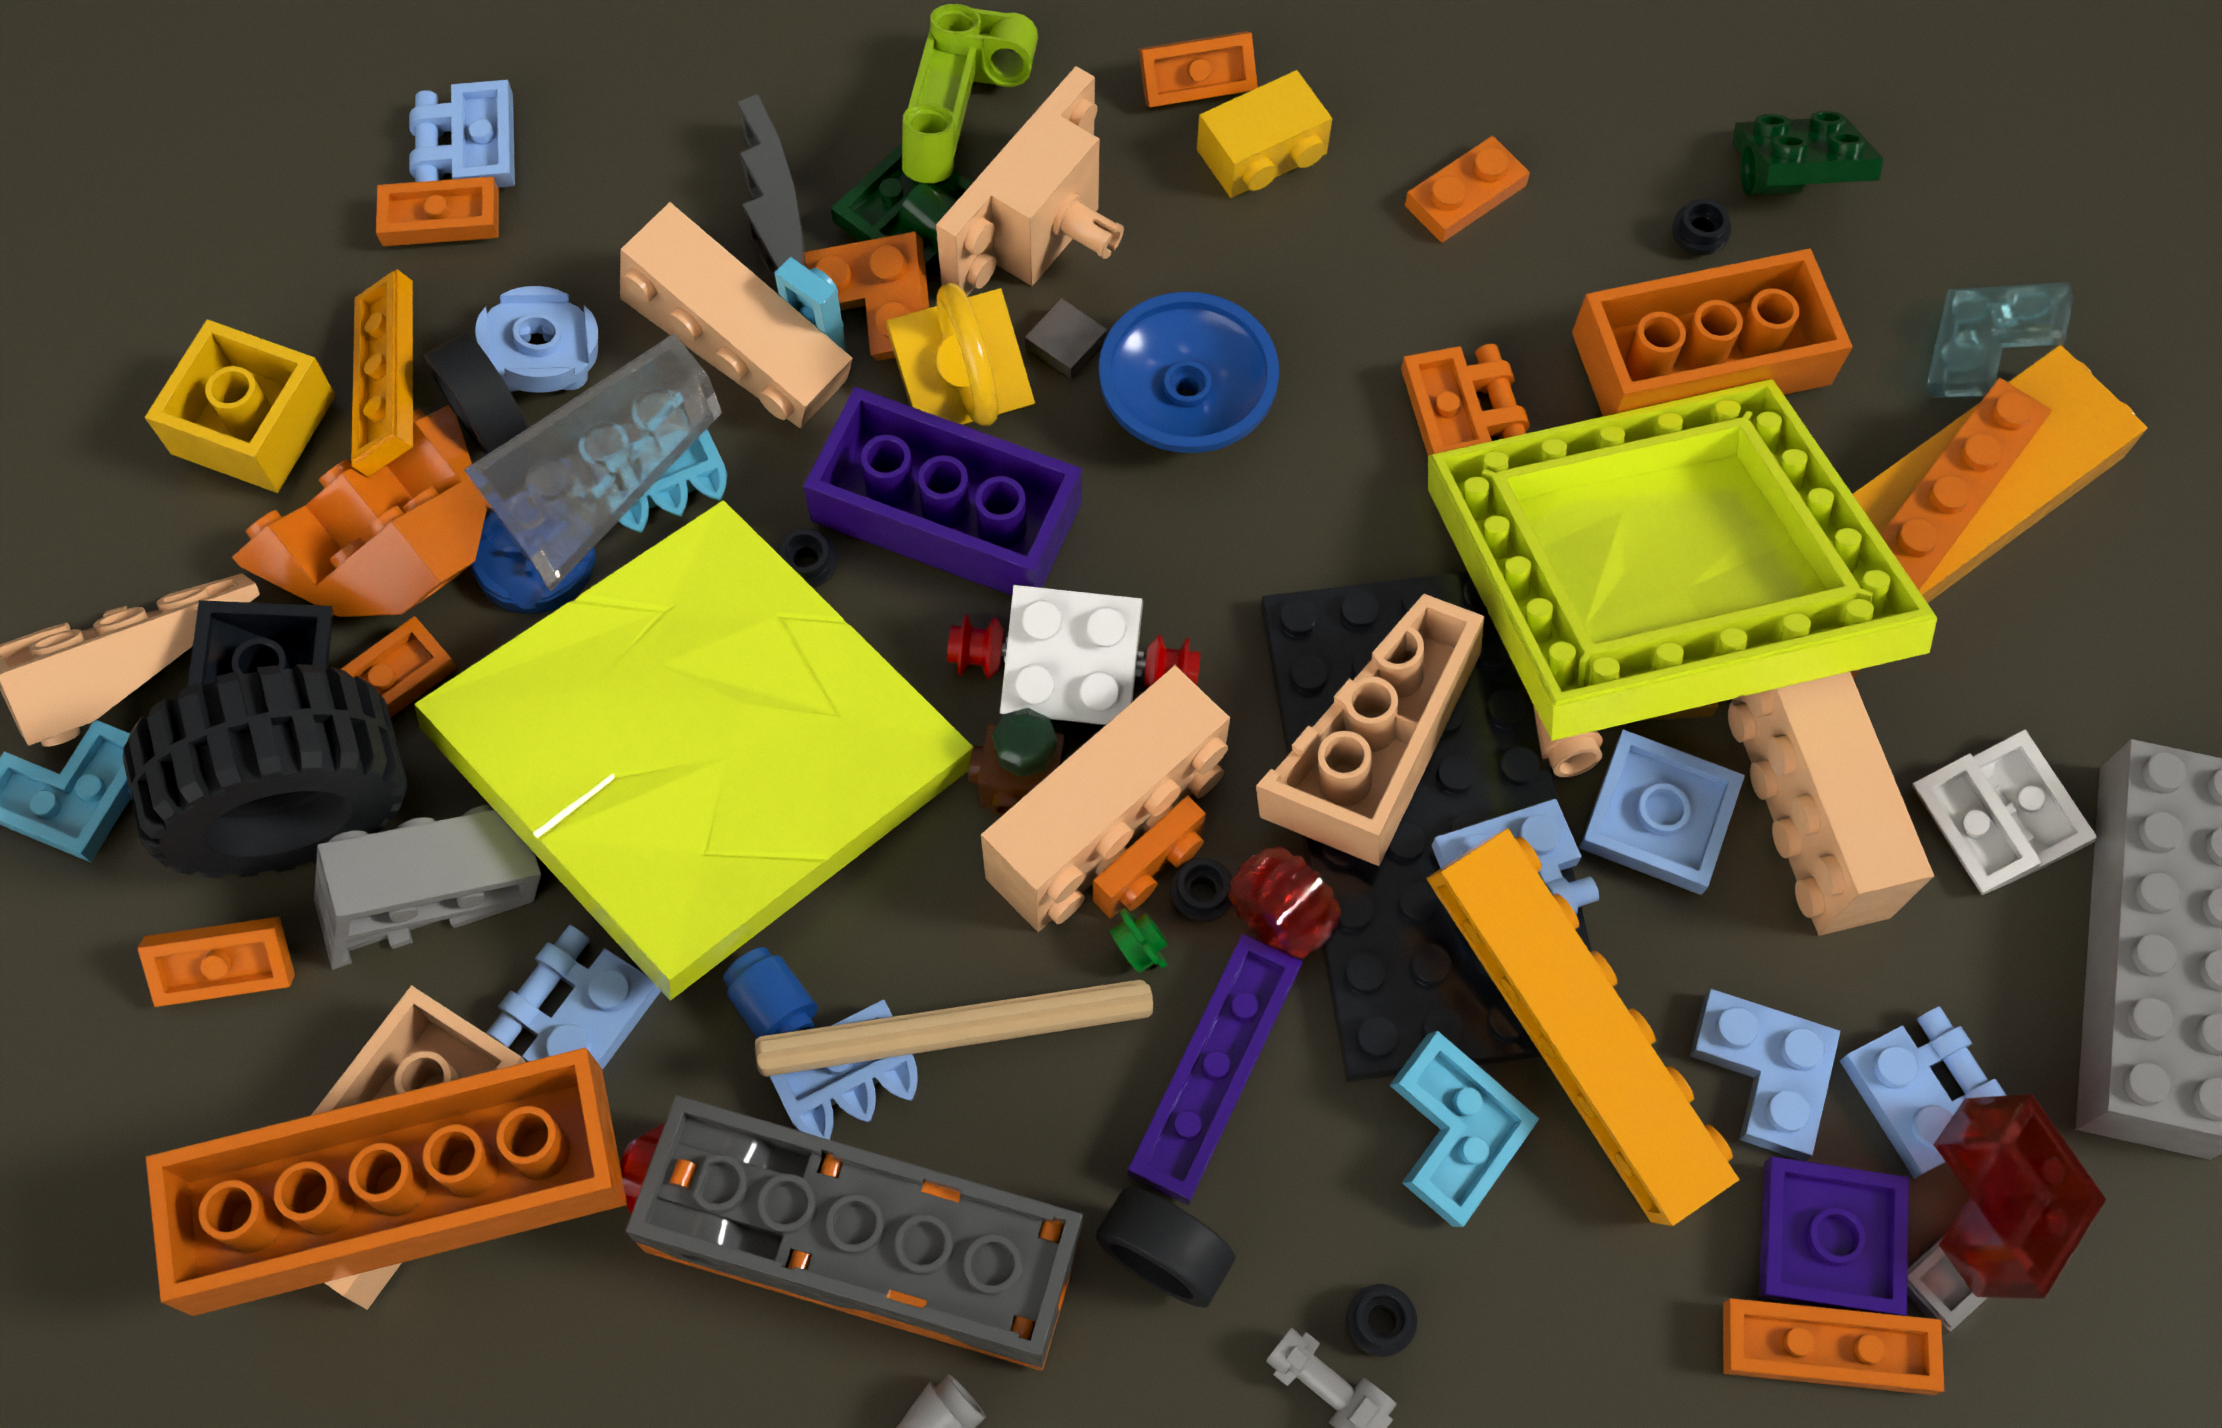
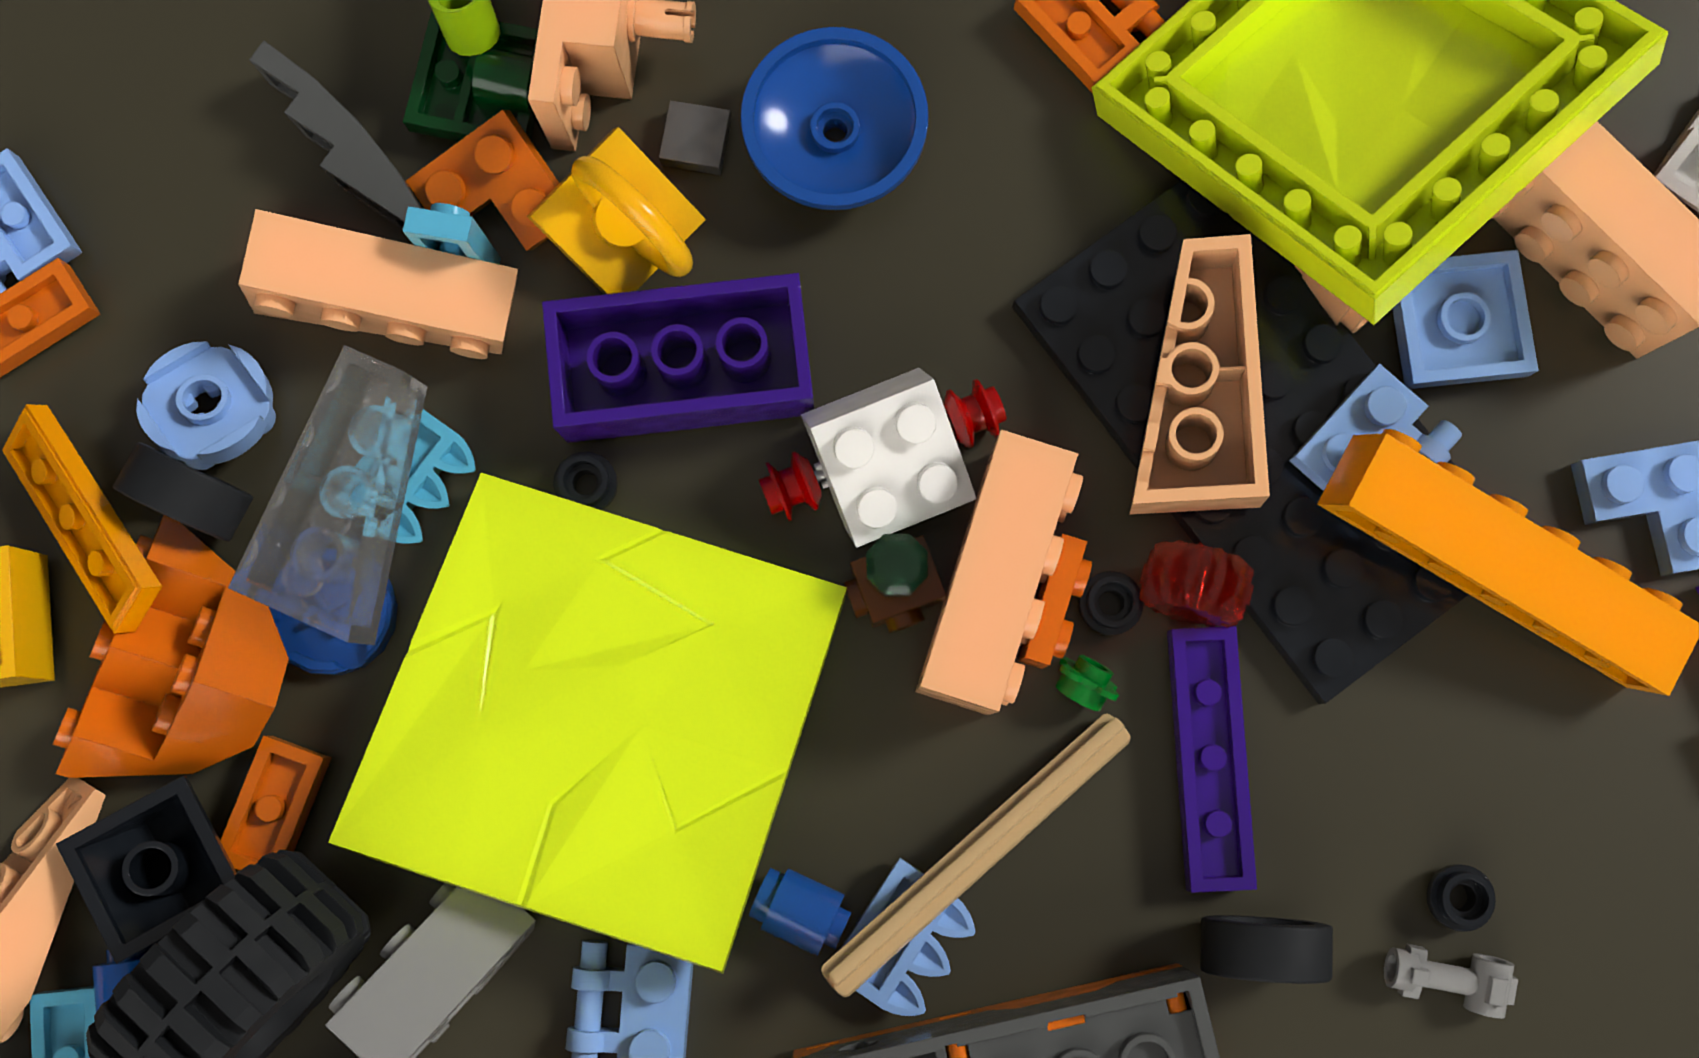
camera: 25 degrees left, 15 degrees up
(1477, 1126) = (1459, 700): medium azure plate -> none

